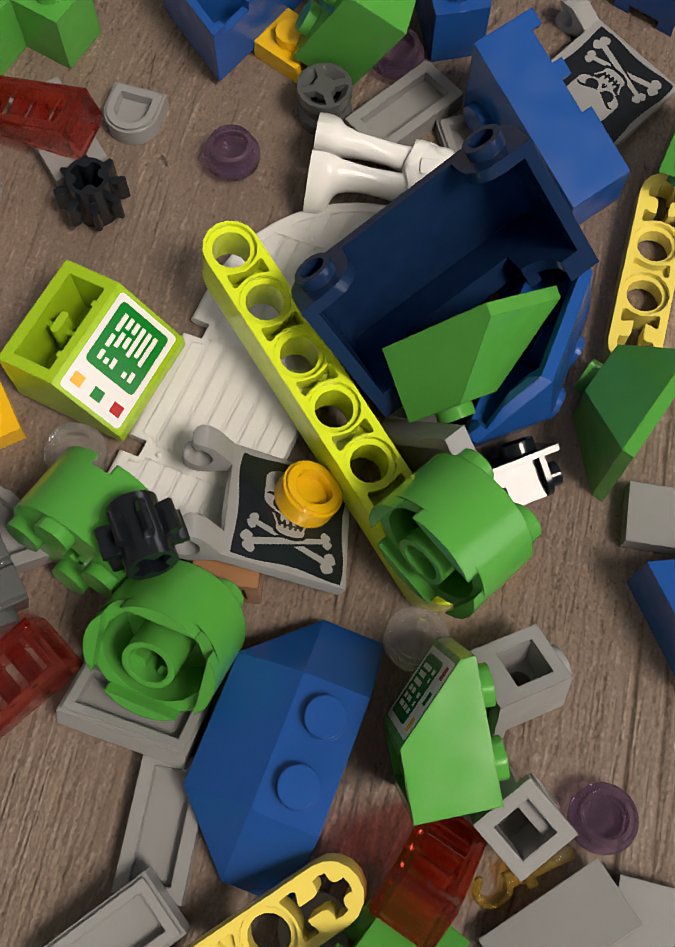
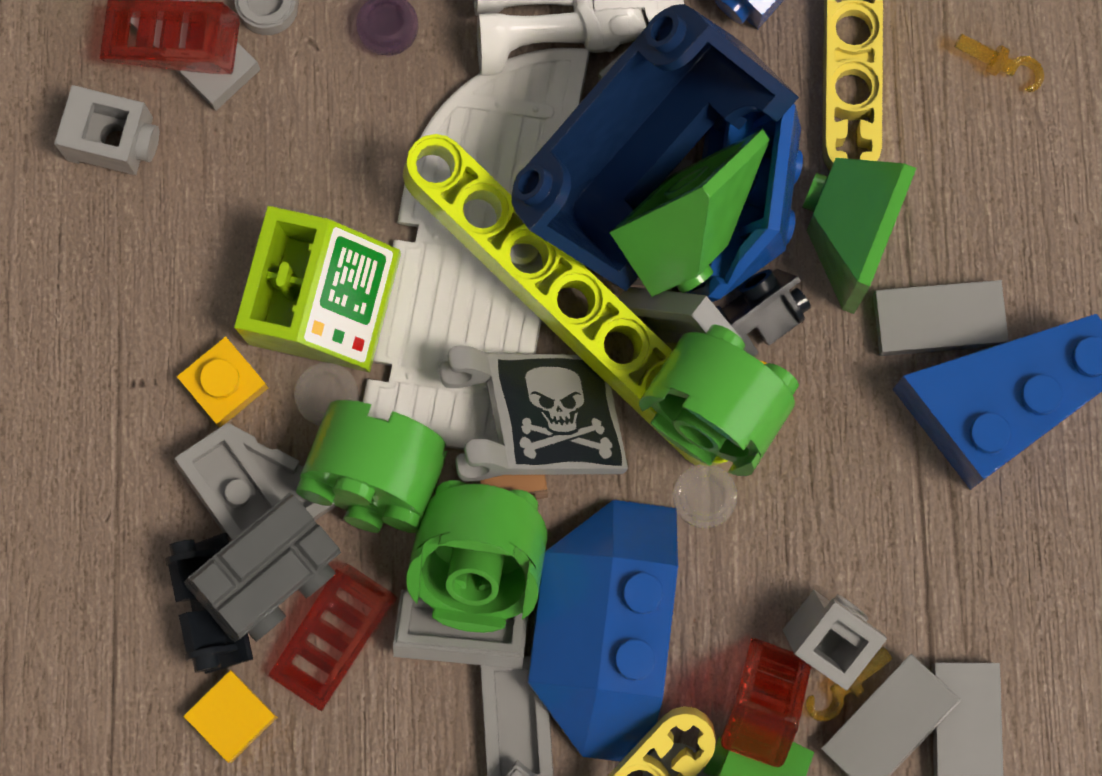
camera: 10 degrees left, 10 degrees up
(92, 192) = (249, 95): black gear -> none
(141, 534) = (437, 473): black gear -> none
(308, 494) = (569, 385): yellow tile -> none
(442, 737) = (748, 583): bright green slope -> none
(534, 666) = (802, 493): light grey brick -> none
(603, 818) = (911, 617): plate -> none

